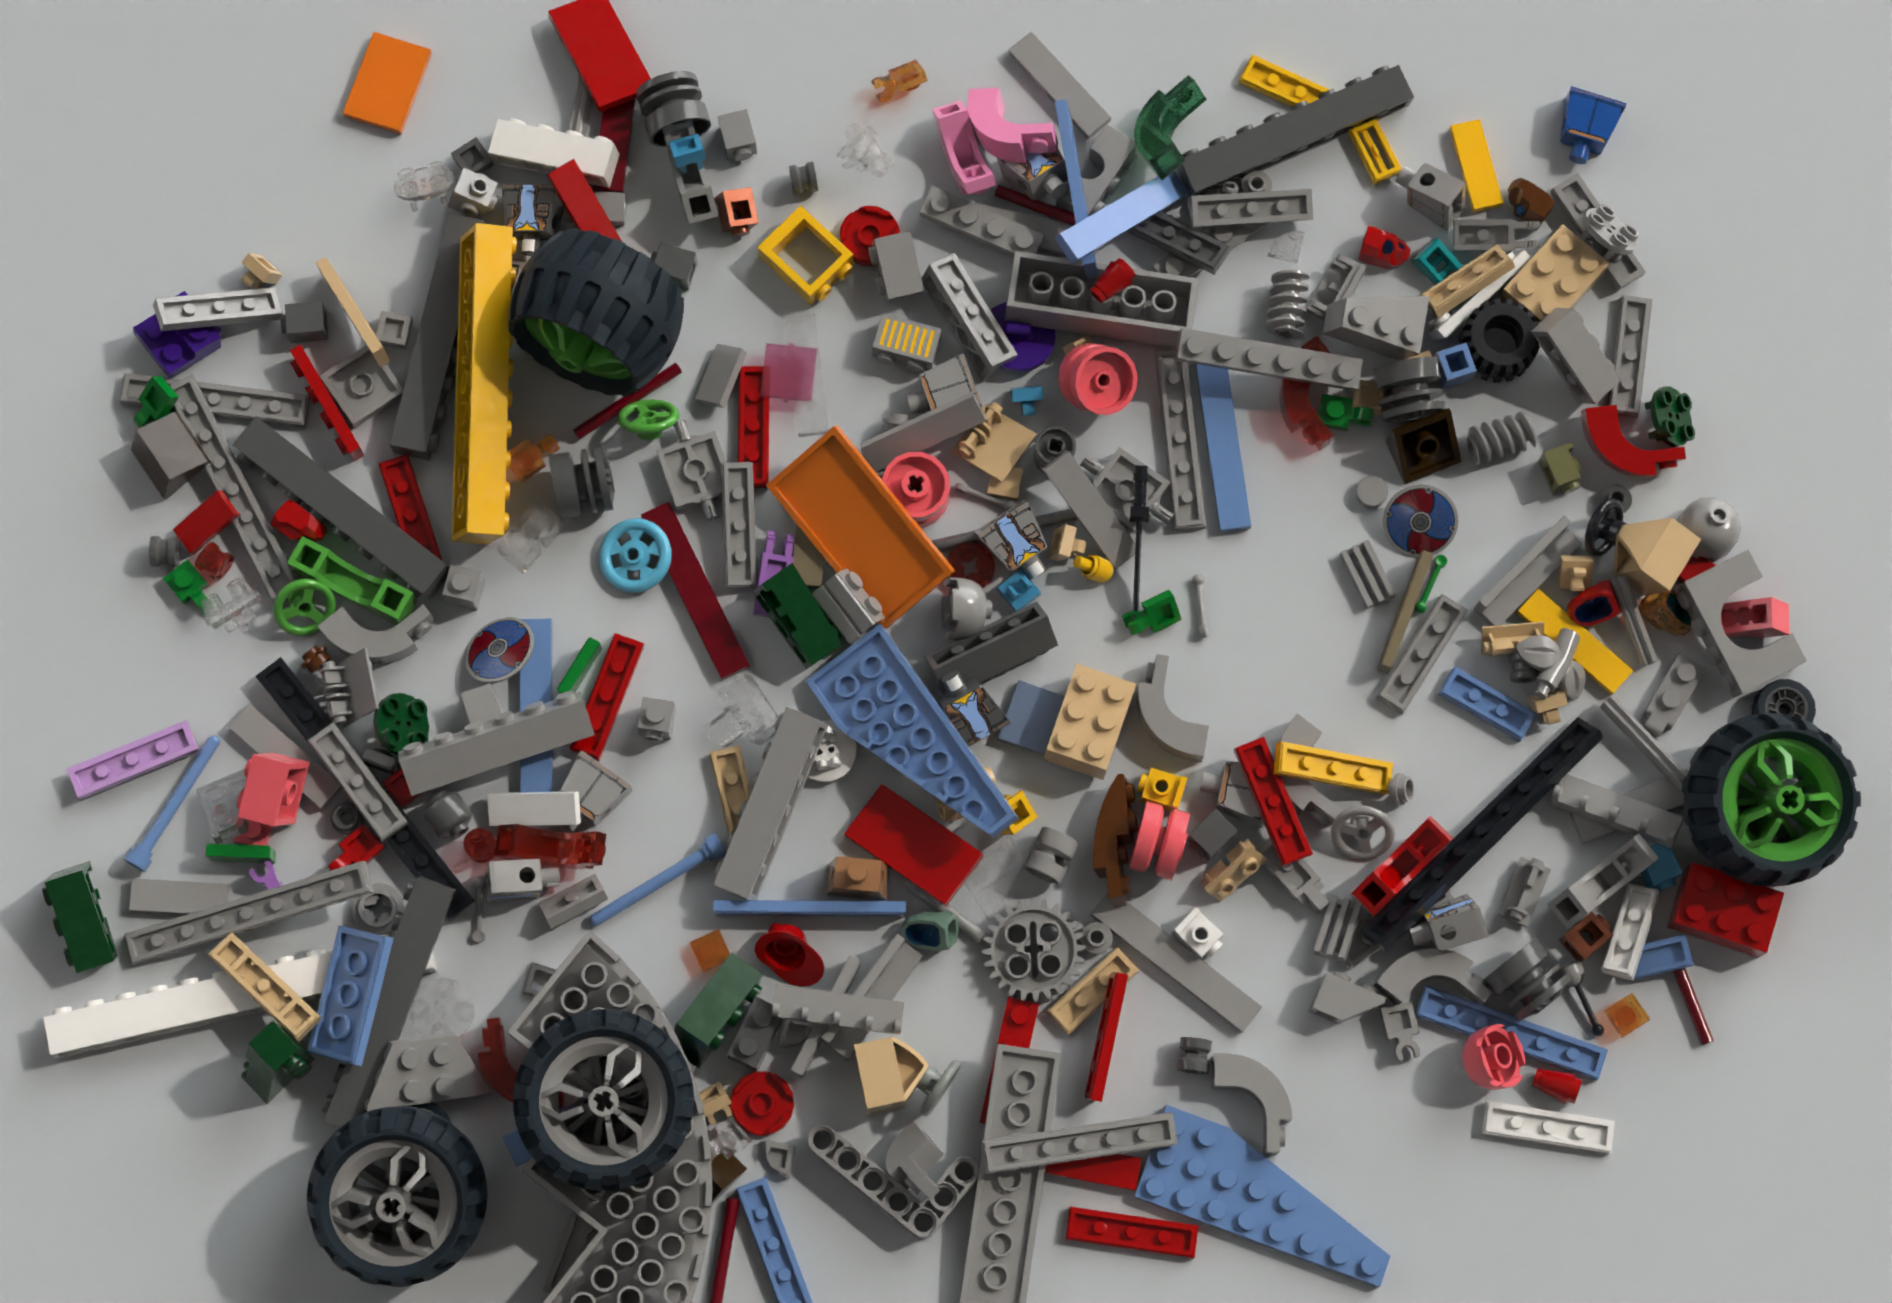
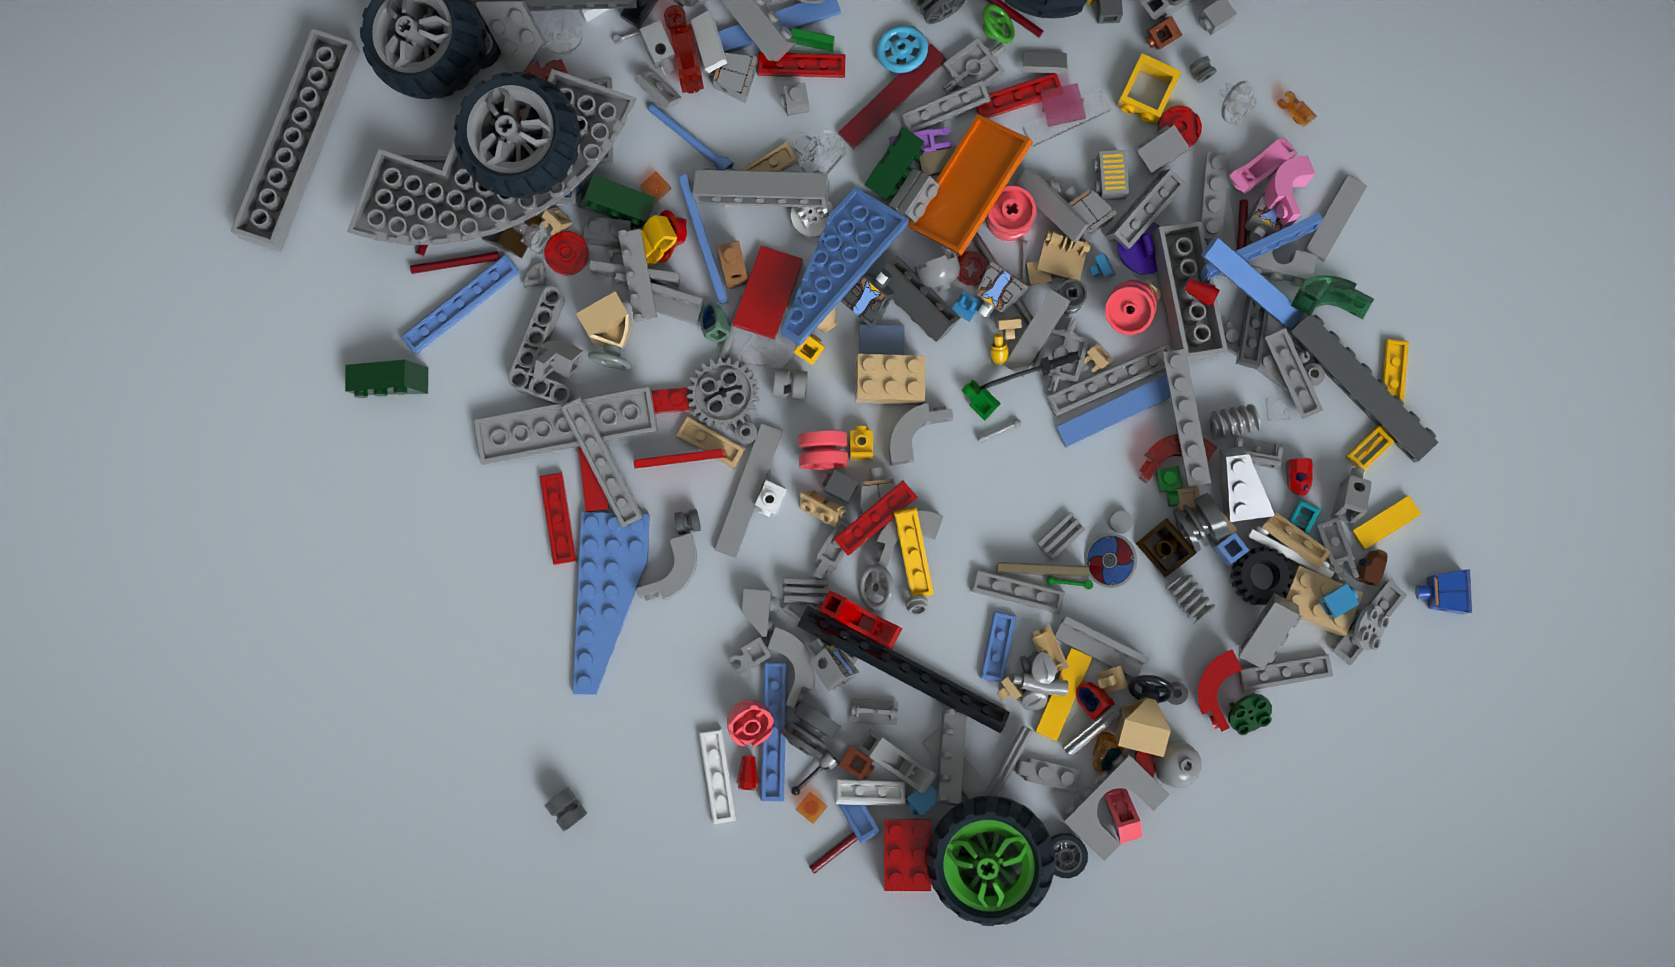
camera: 75 degrees right, 5 degrees up
(789, 965) = (657, 238): none -> yellow brick
(1112, 832) = (815, 418): reddish brown slope -> none
(1144, 442) = (1100, 357): none -> tan tile
(1561, 469) = (1184, 647): olive brick -> none
(1567, 255) = (1339, 601): none -> dark azure brick

